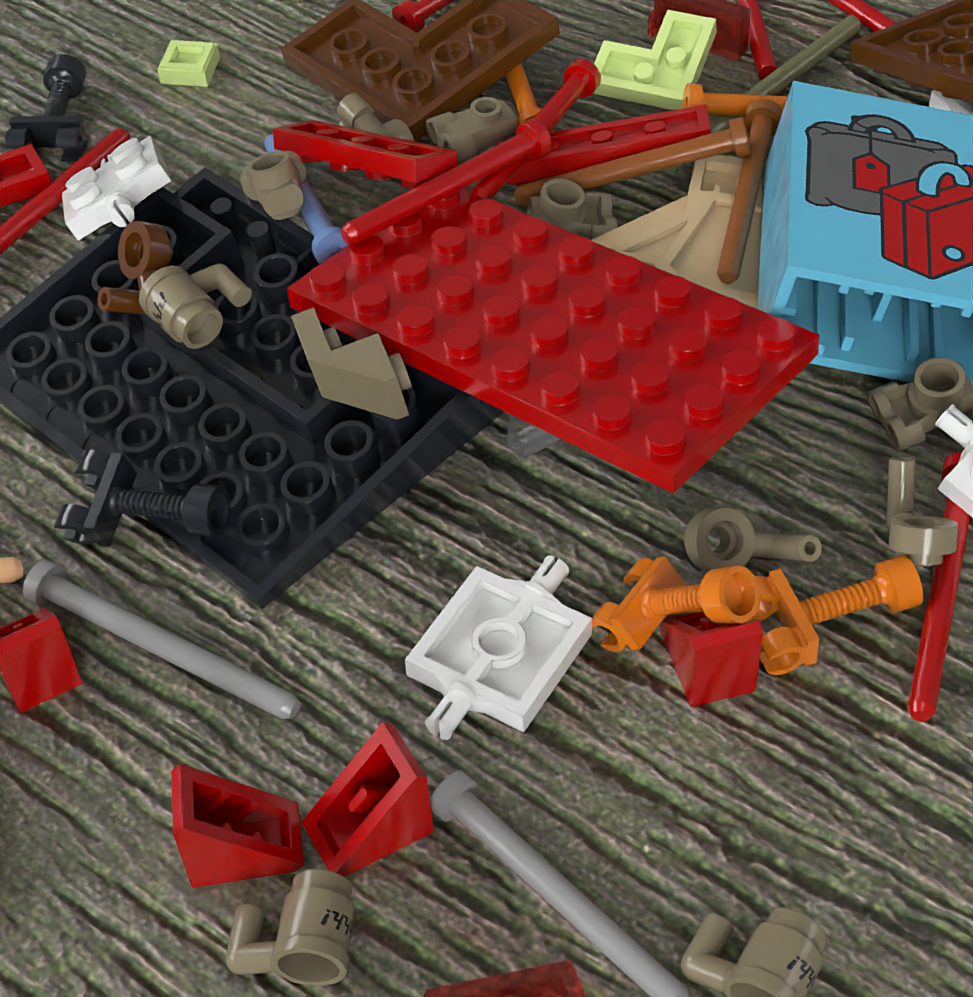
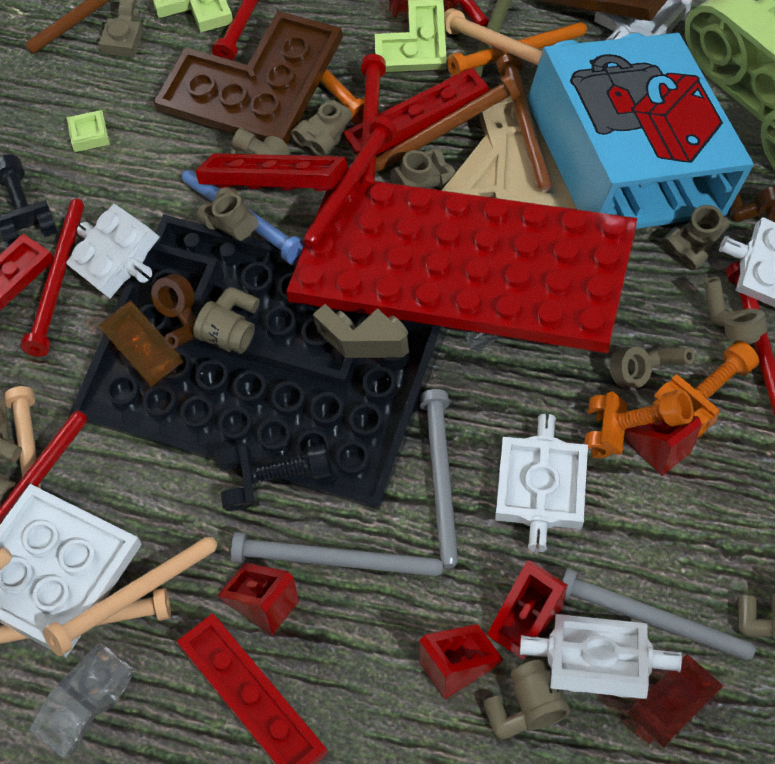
camera: 25 degrees left, 10 degrees up
(70, 298) = (140, 343): none -> clear orange plate
(413, 497) = (434, 402): none -> light grey bar
(430, 906) = (600, 656): none -> white plate
(728, 60) = (456, 23): none -> light nougat bar

